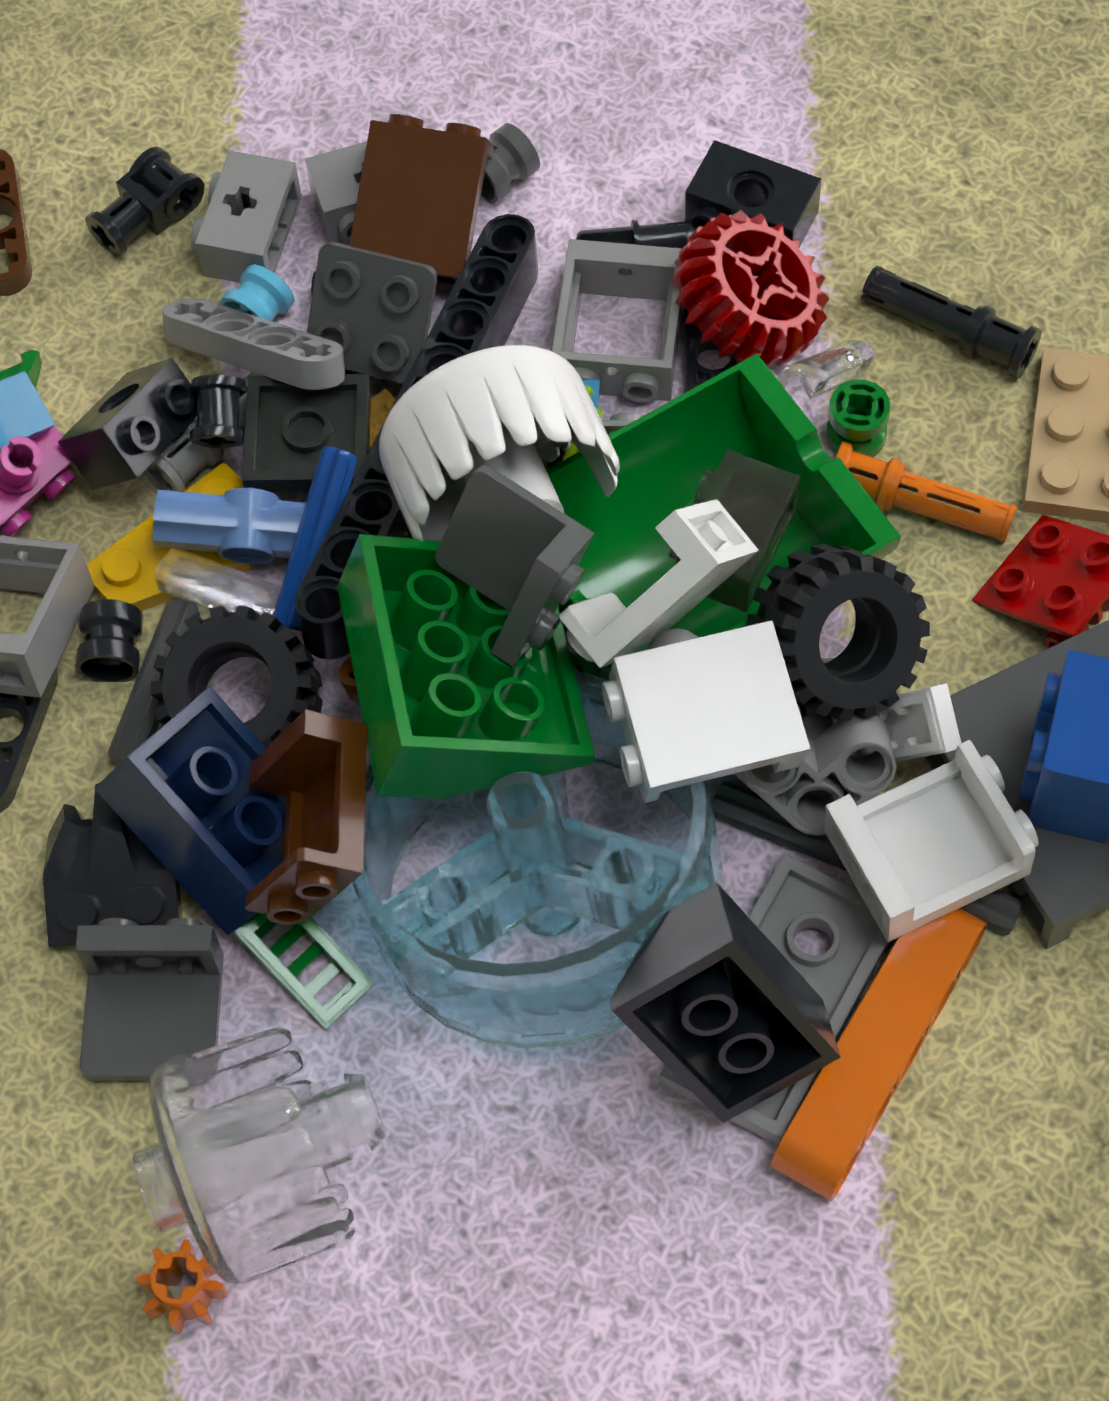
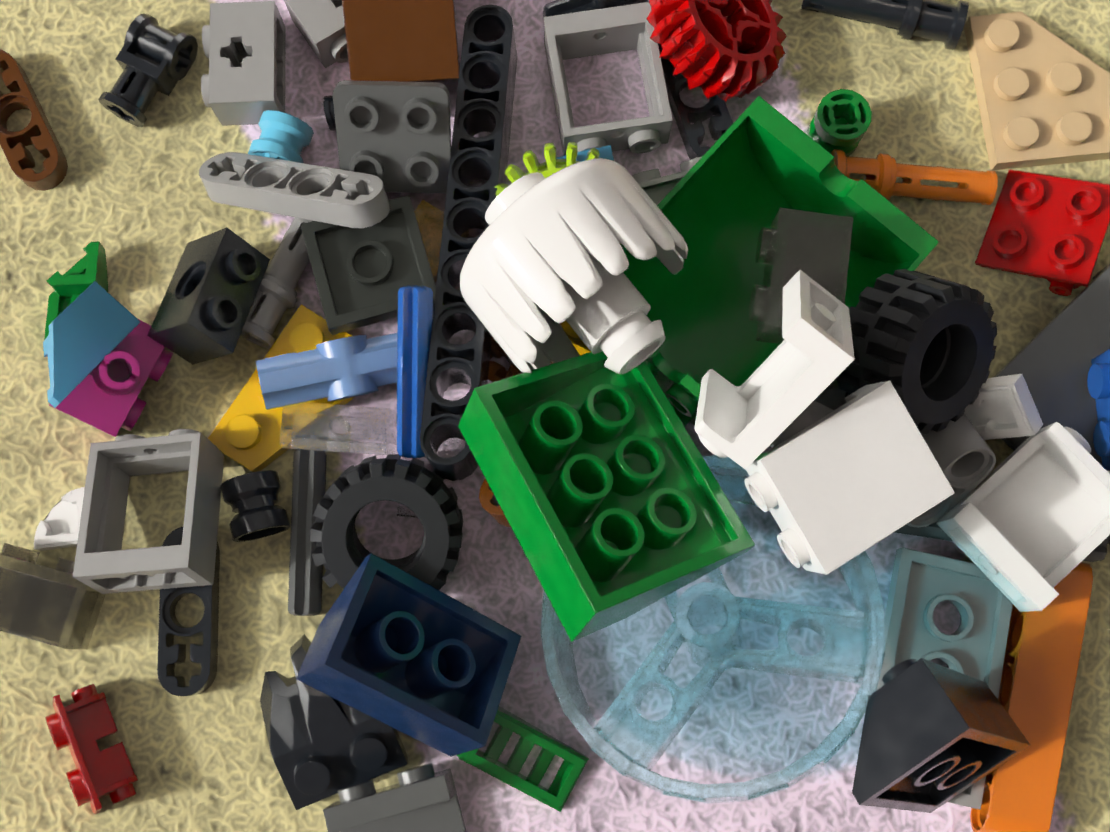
camera: 20 degrees left, 15 degrees up
(218, 411) = (284, 266): black bush -> none
(323, 776) = (518, 664): reddish brown panel -> none
(516, 555) = (640, 376): dark grey bracket -> none
(827, 368) = (807, 83): clear slope -> none

